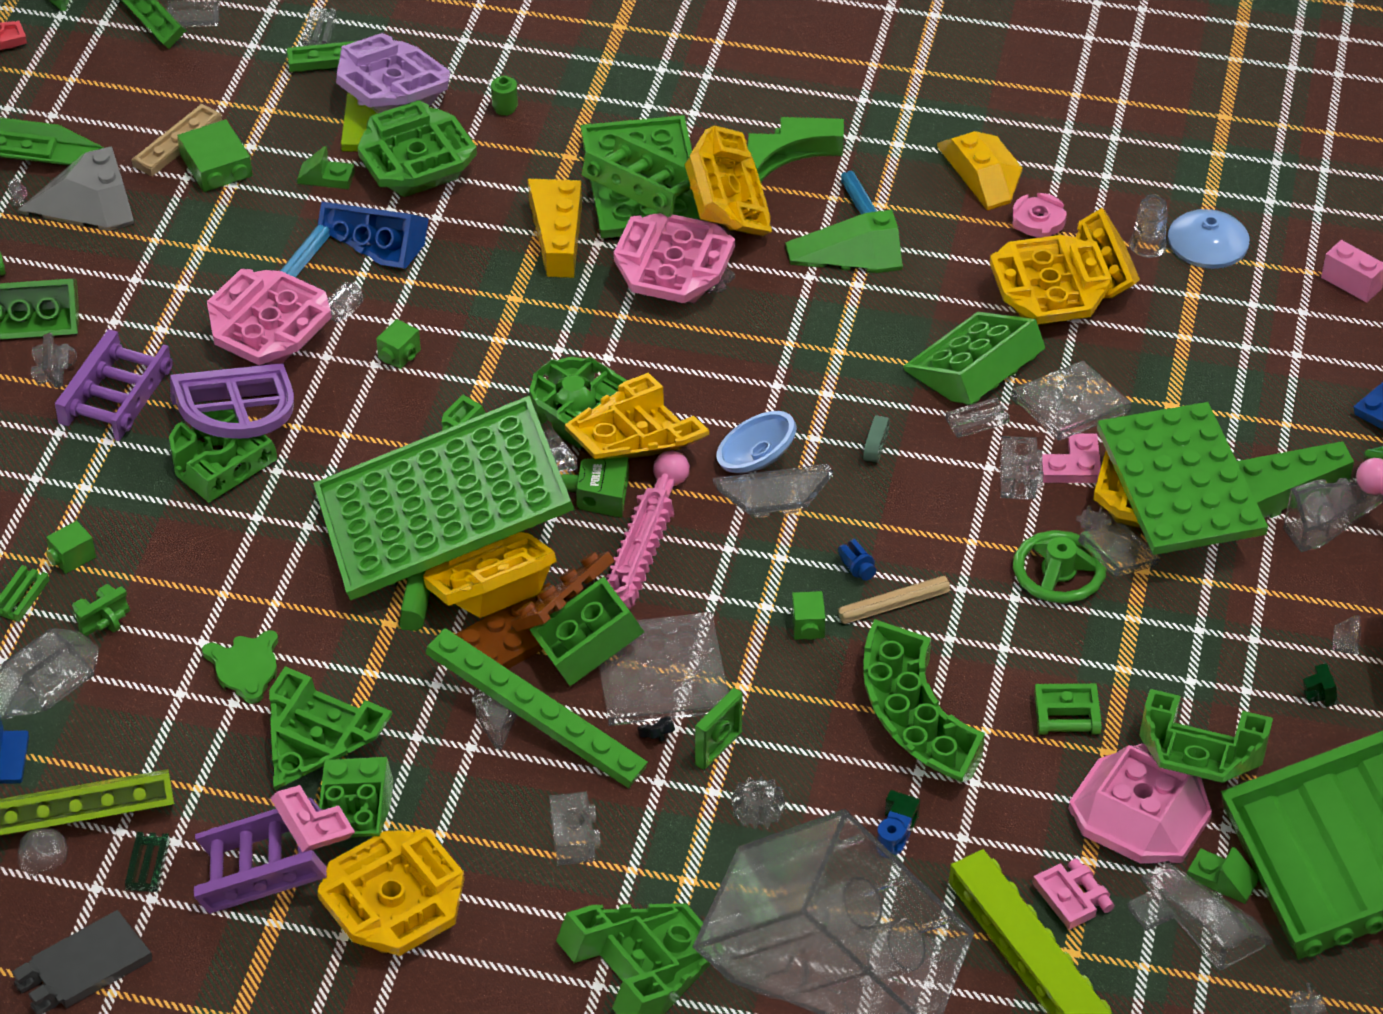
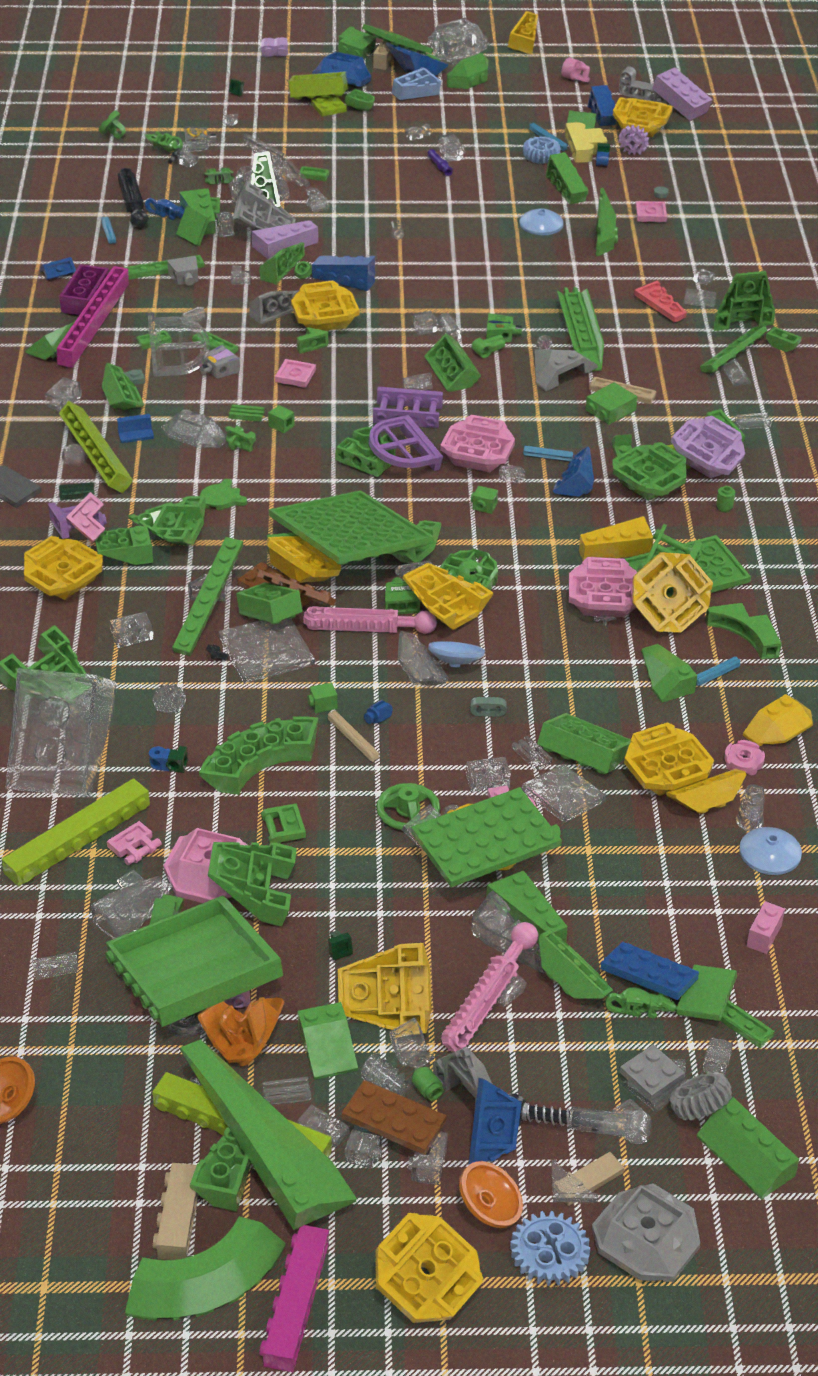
camera: 75 degrees right, 5 degrees down
(718, 728) = (213, 668): bright green tile -> none

